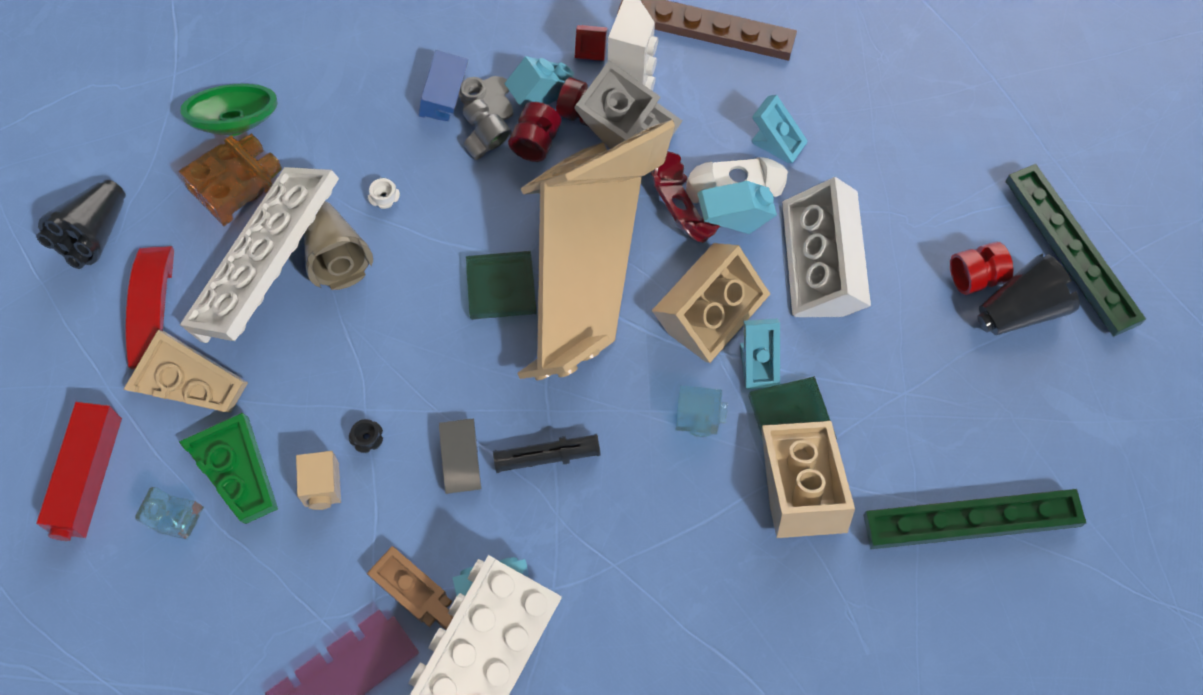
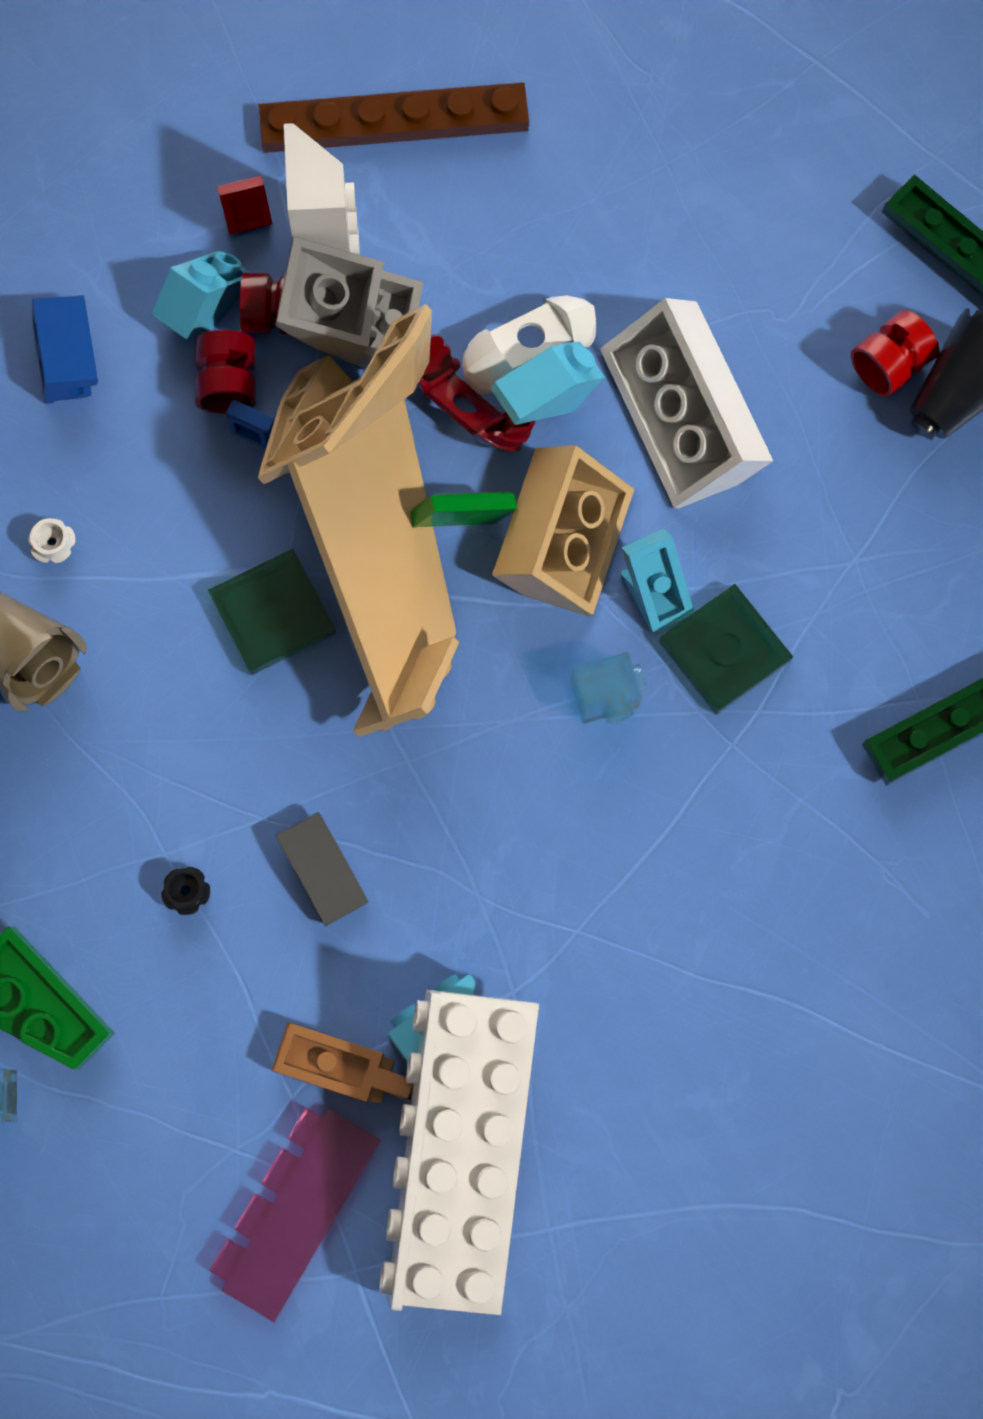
camera: 25 degrees left, 10 degrees up
(318, 480) = (153, 976): tan brick -> none
(489, 130) = (159, 393): flat silver piece -> none
(491, 91) = (138, 350): light grey plate -> none
(534, 163) = (249, 423): none -> blue tile
(547, 453) = (483, 791): black pin -> none
(649, 262) = (463, 509): none -> green tile
(778, 130) = (557, 249): medium azure slope -> none
(806, 480) = (777, 728): tan slope -> none

